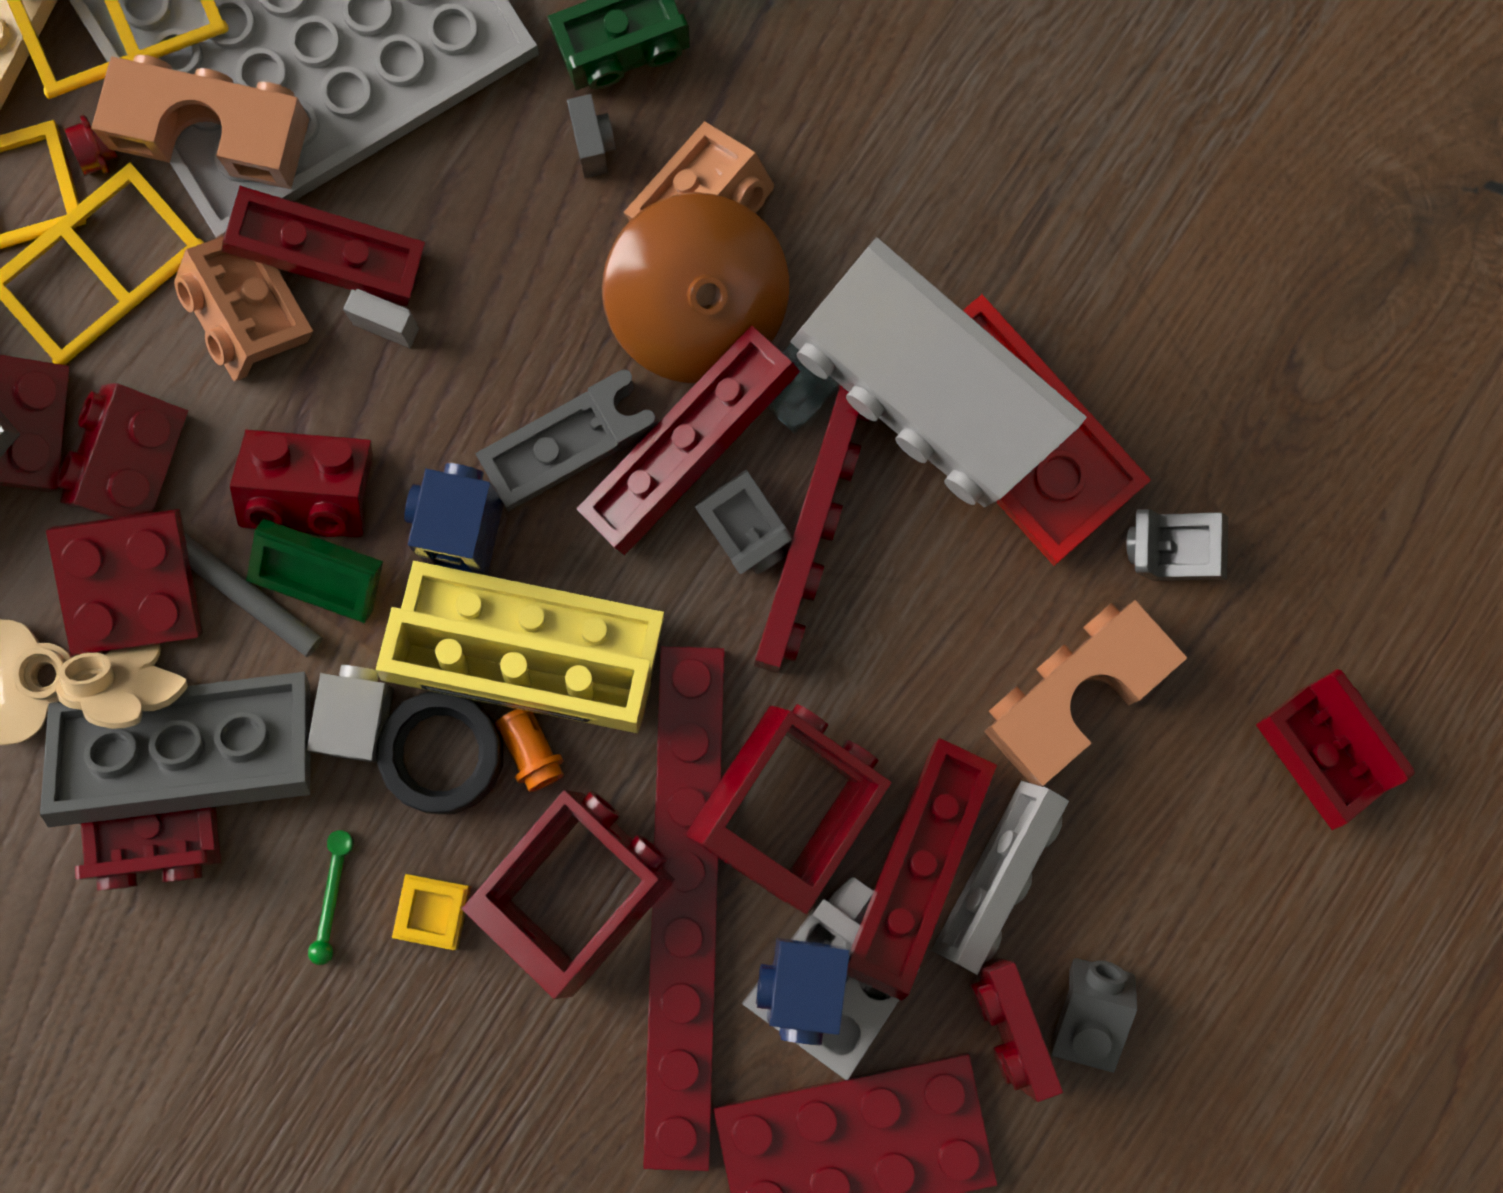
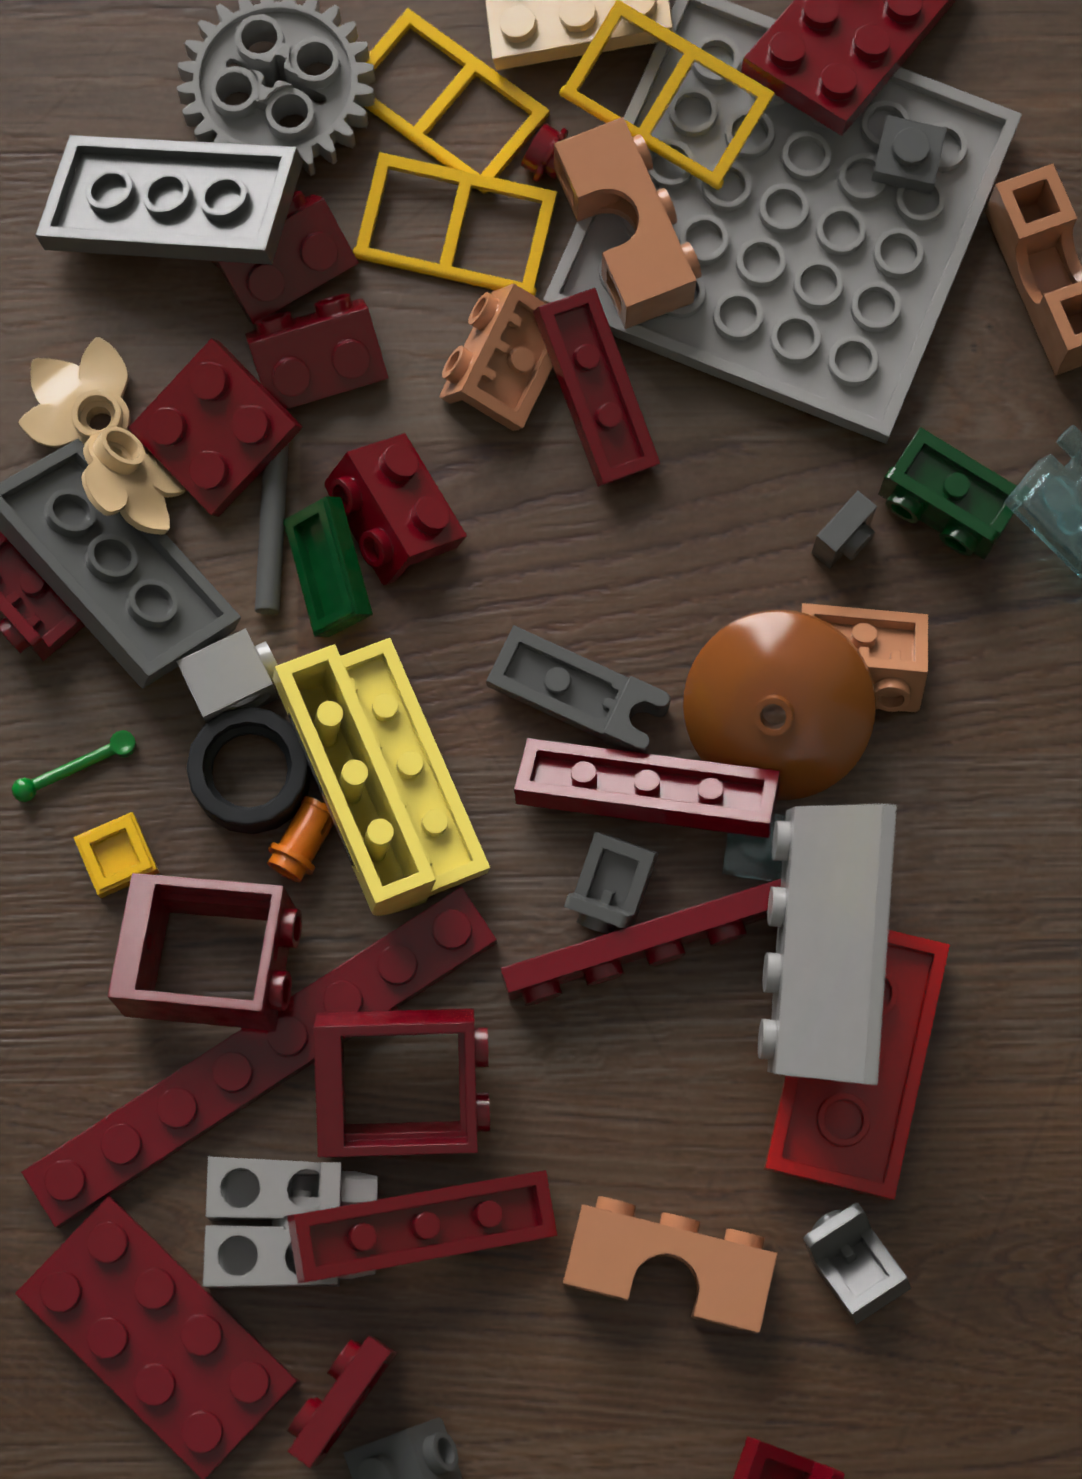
camera: 60 degrees right, 5 degrees down
(381, 317) = (572, 473): light grey tile -> none
(454, 518) = (445, 645): dark blue brick -> none
(804, 990) = (248, 1188): dark blue brick -> none
(1001, 876) = (463, 1304): light grey plate -> none

